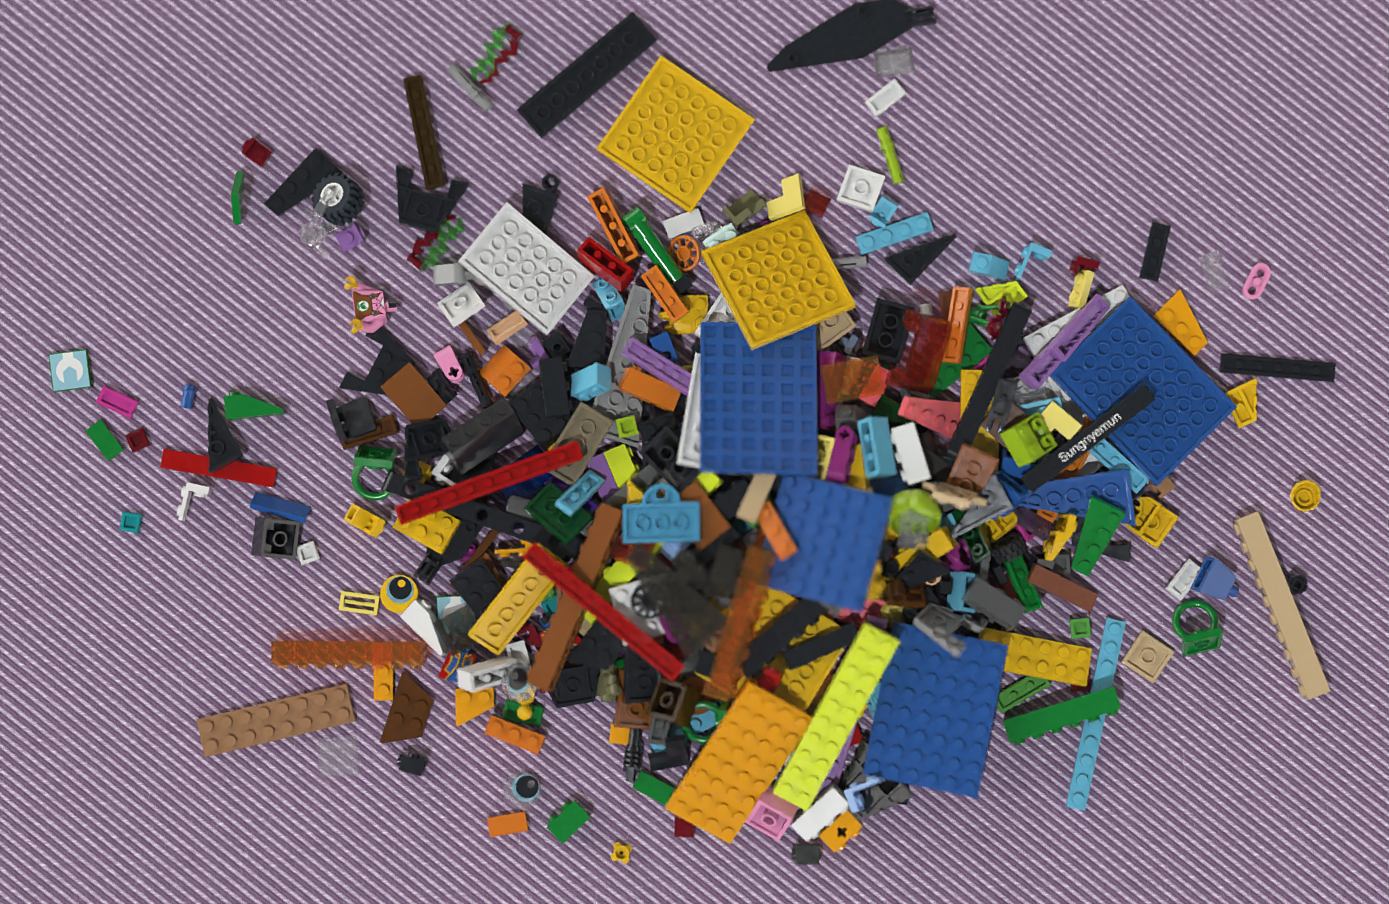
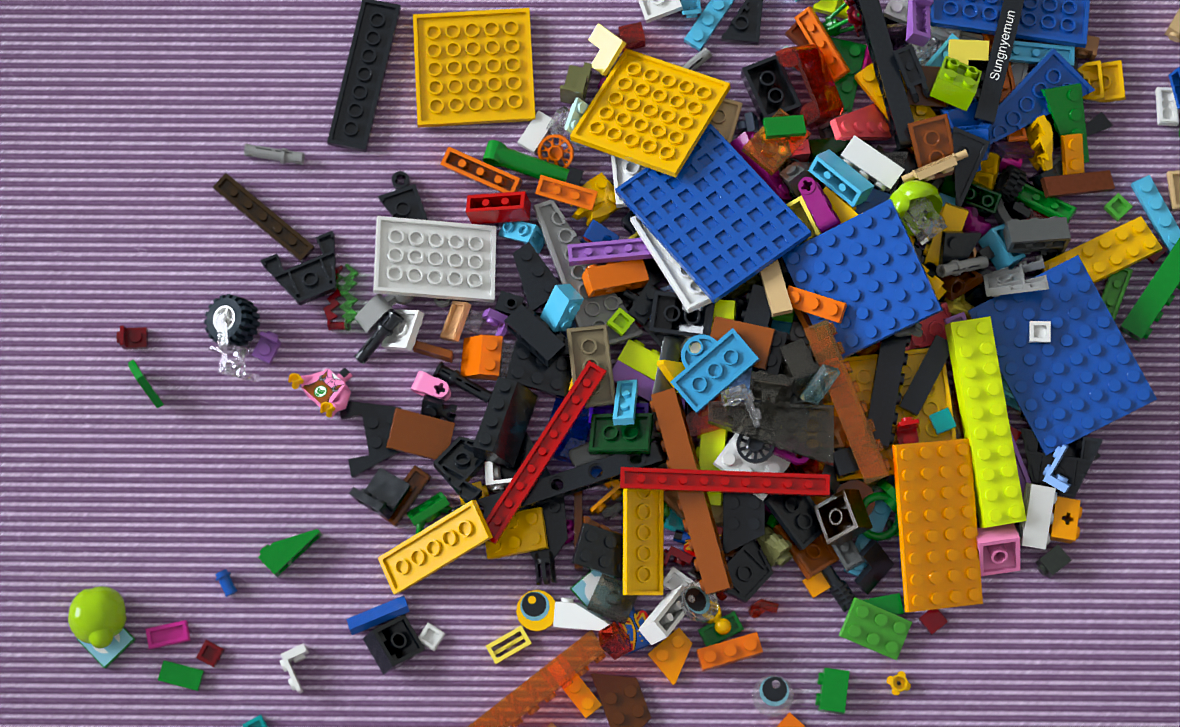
camera: 35 degrees left, 10 degrees down
(75, 350) = (97, 615): none -> lime piece
(222, 445) = (287, 600): black wing -> none
(235, 471) = (298, 623): red tile -> none
(301, 183) = (189, 335): black wing -> none
(357, 491) = (435, 547): none -> yellow plate
(364, 520) = (461, 570): yellow brick -> none
(434, 663) = (614, 640): none -> clear red brick
(446, 294) = (383, 330): none -> black pin
(491, 60) = (276, 120): piece -> none
(565, 719) = (761, 606): none -> clear red arm
(592, 305) = (510, 249): black tile -> none
(635, 801) = (875, 628): none -> bright green plate
(657, 555) = (735, 395): none -> clear bracket
(727, 596) = (820, 384): none -> clear light blue tile
(805, 689) = (942, 421): none -> teal tile
(866, 373) = (784, 126): none -> green tile
(909, 583) = (957, 267): none -> light grey pin
(930, 680) = (1039, 331): none -> white tile
(1076, 561) = (1072, 153): none -> light orange plate

